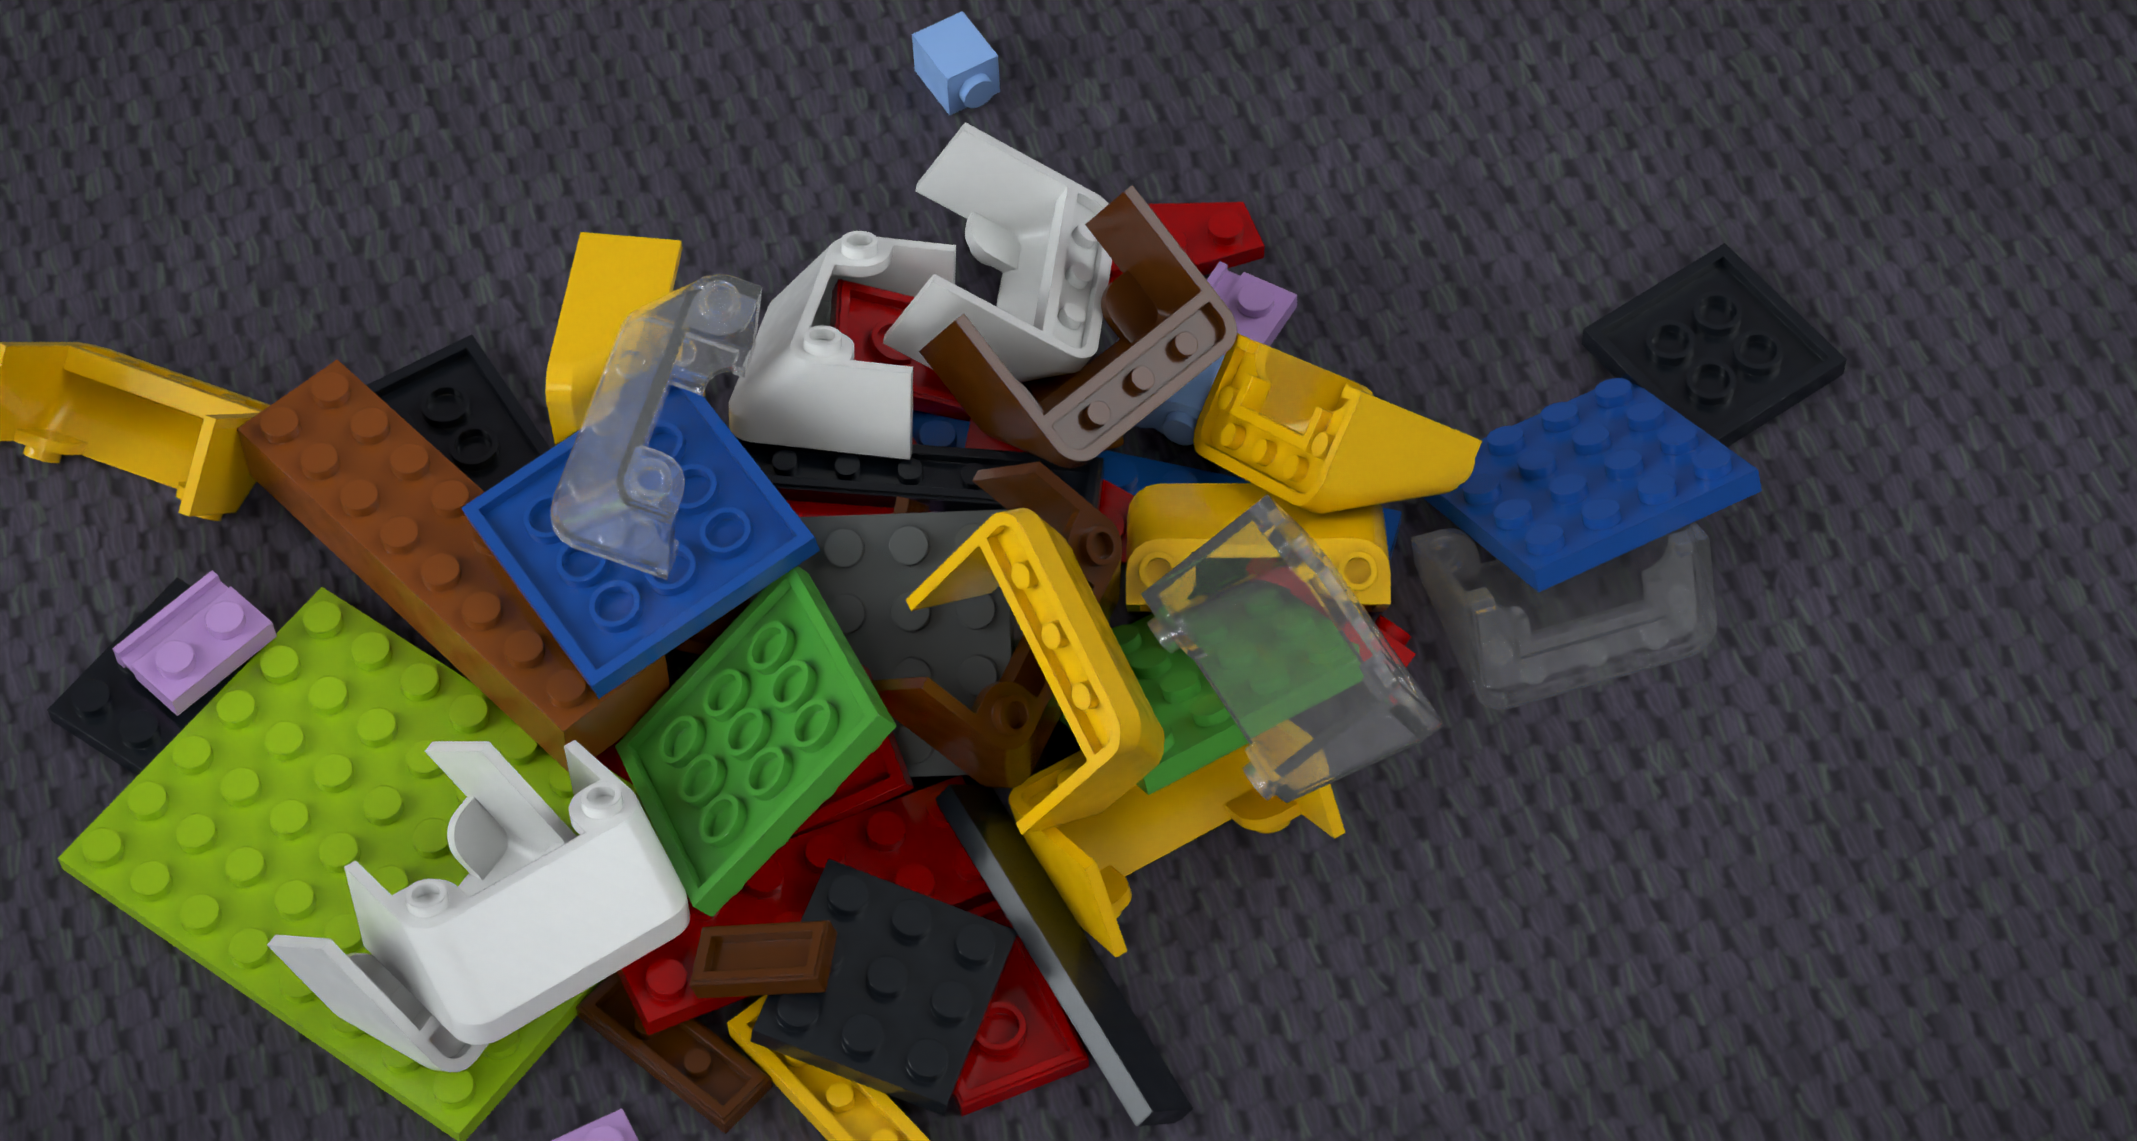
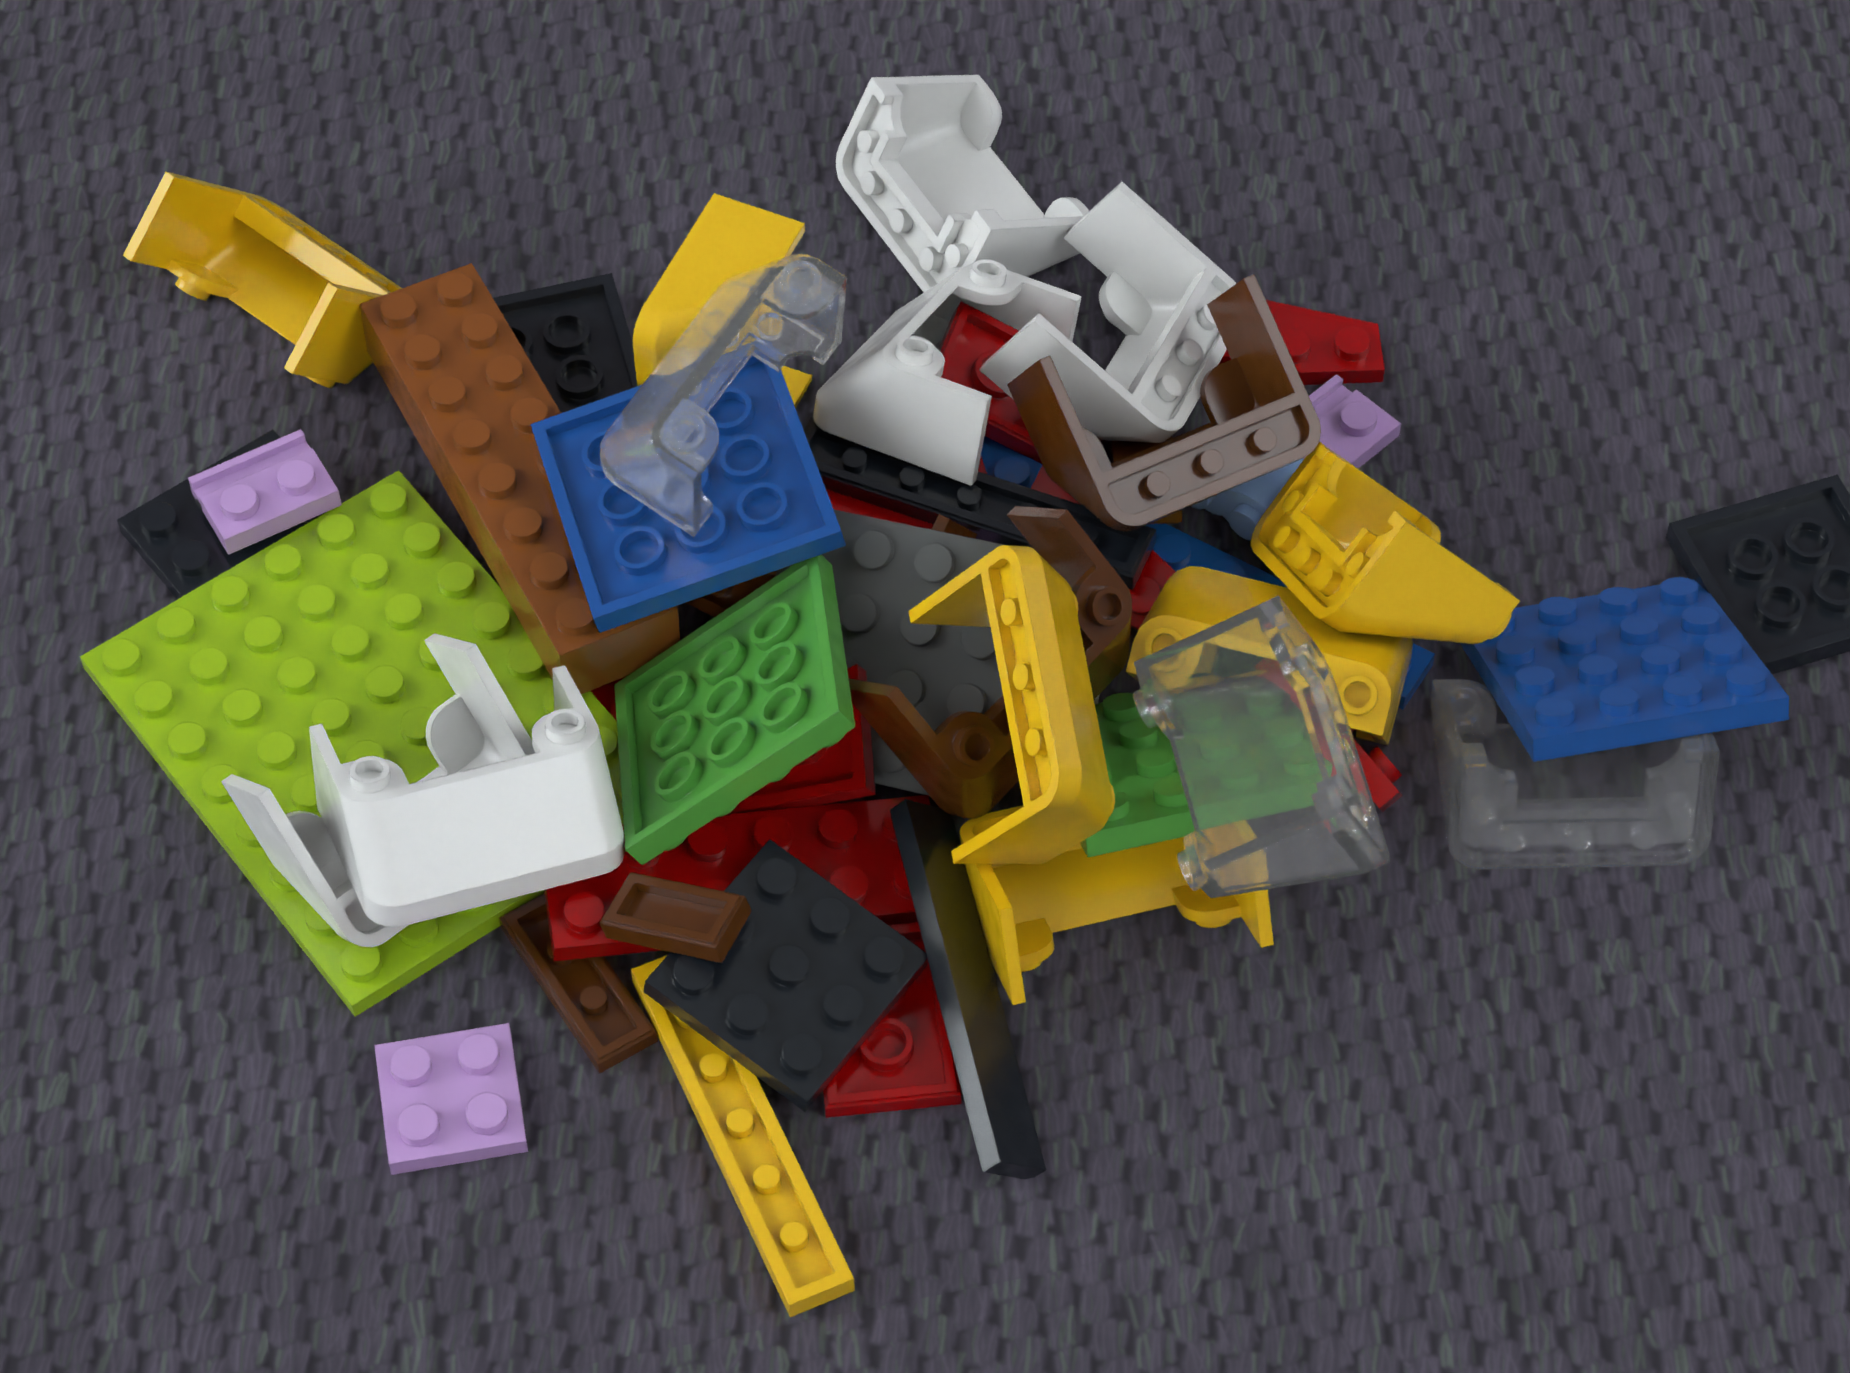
camera: 15 degrees right, 0 degrees up
(768, 172) = (935, 187): none -> white windscreen
(956, 63) = (1145, 130): light blue brick -> none

